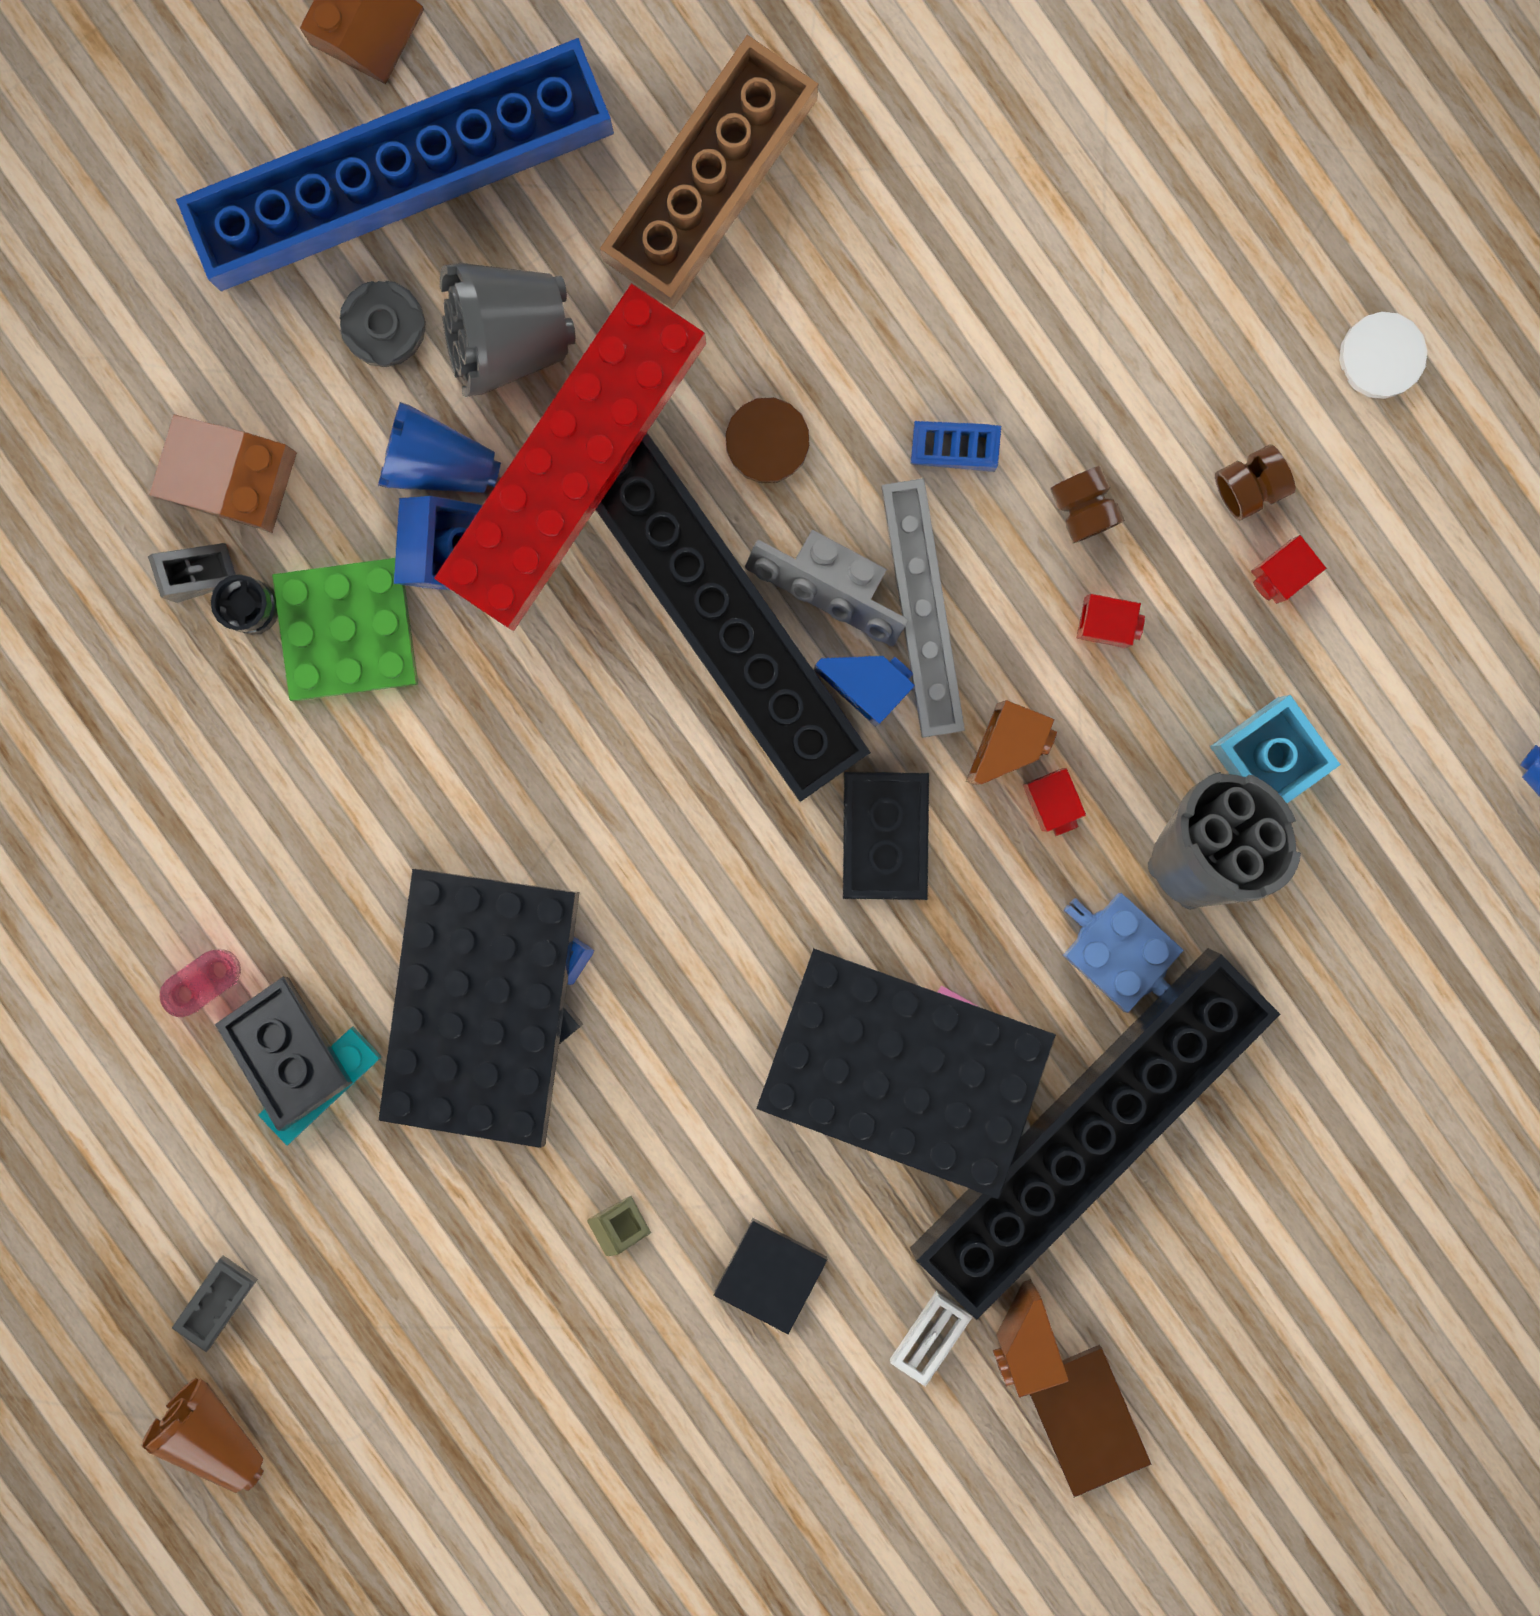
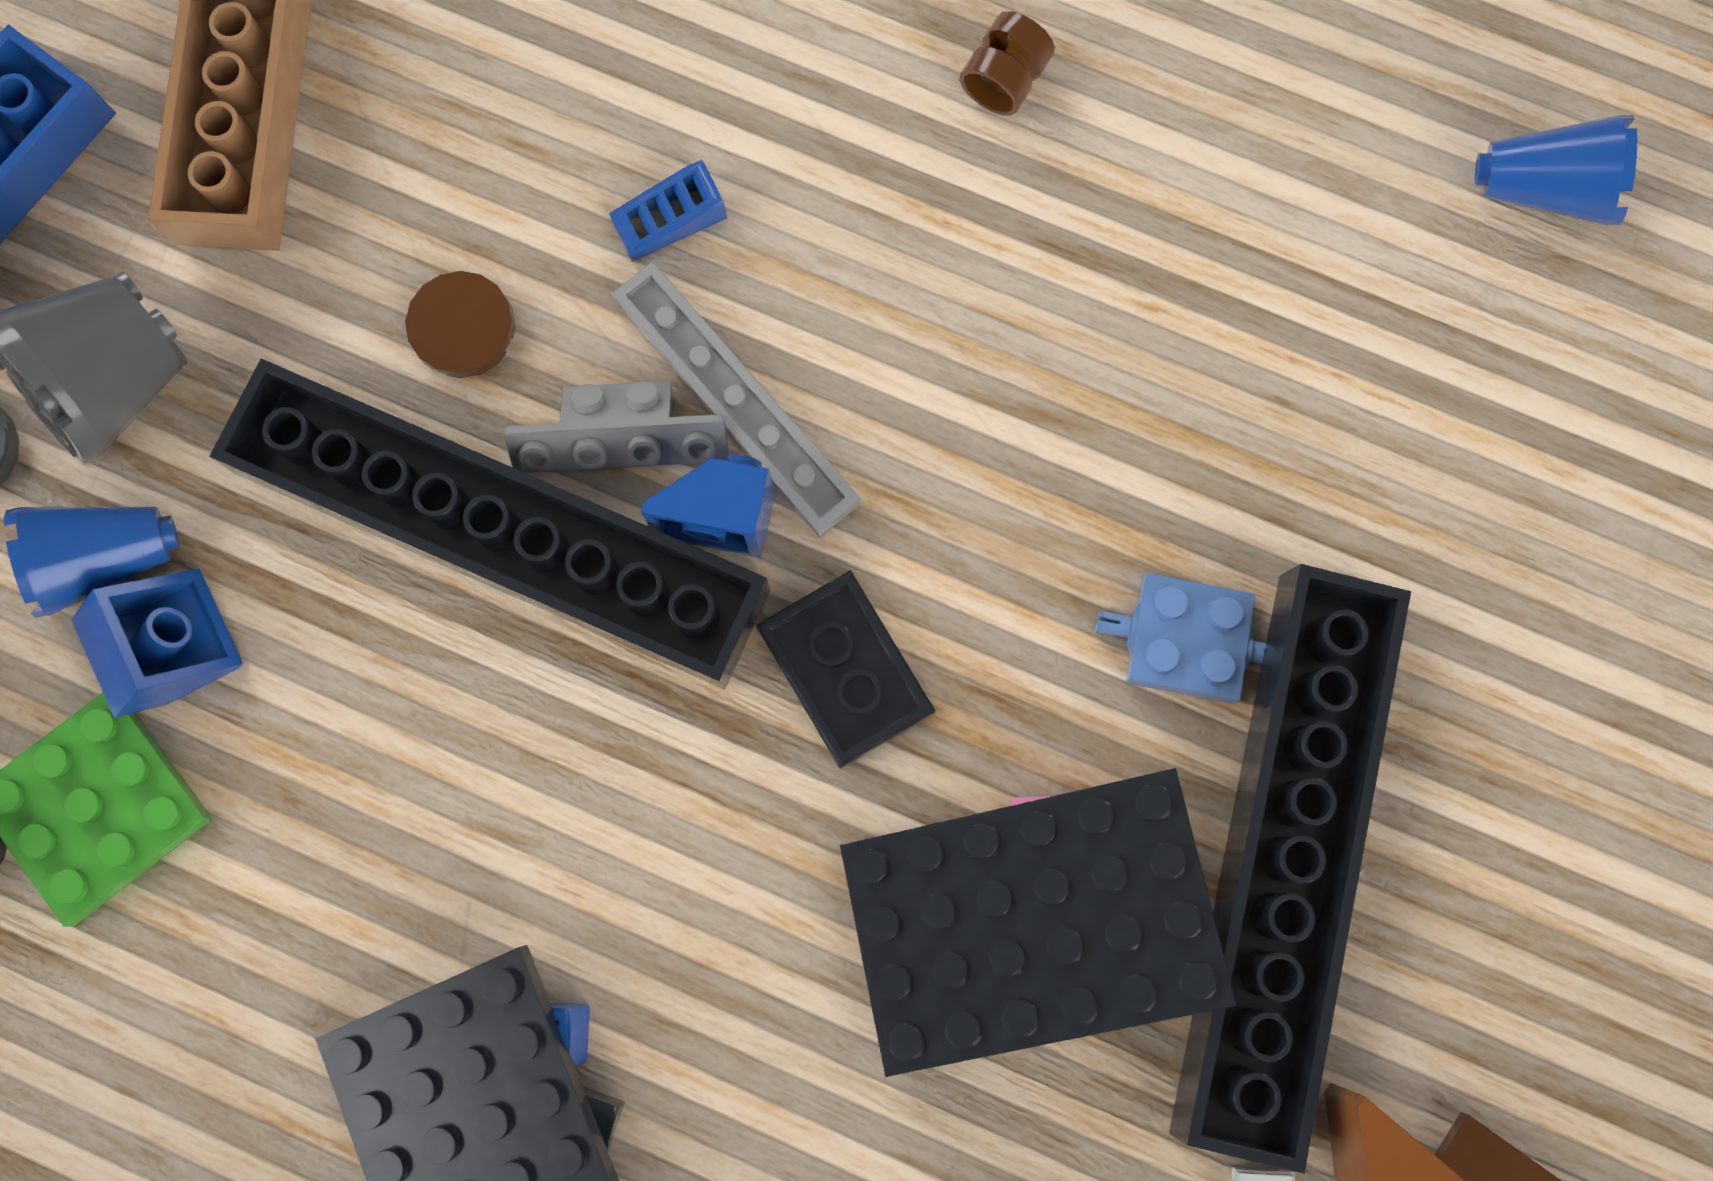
camera: 35 degrees left, 10 degrees down
(572, 457) = (229, 454): red brick -> none
(1011, 742) = (919, 473): dark orange slope -> none
(1055, 802) = (1008, 516): red brick -> none
(1086, 503) = (837, 182): reddish brown wheel -> none
(1110, 621) = (946, 291): red brick -> none
(1226, 843) = (1224, 439): dark grey cone -> none
(1277, 748) = (1214, 322): medium azure brick -> none
(1287, 570) = (1099, 131): red brick -> none

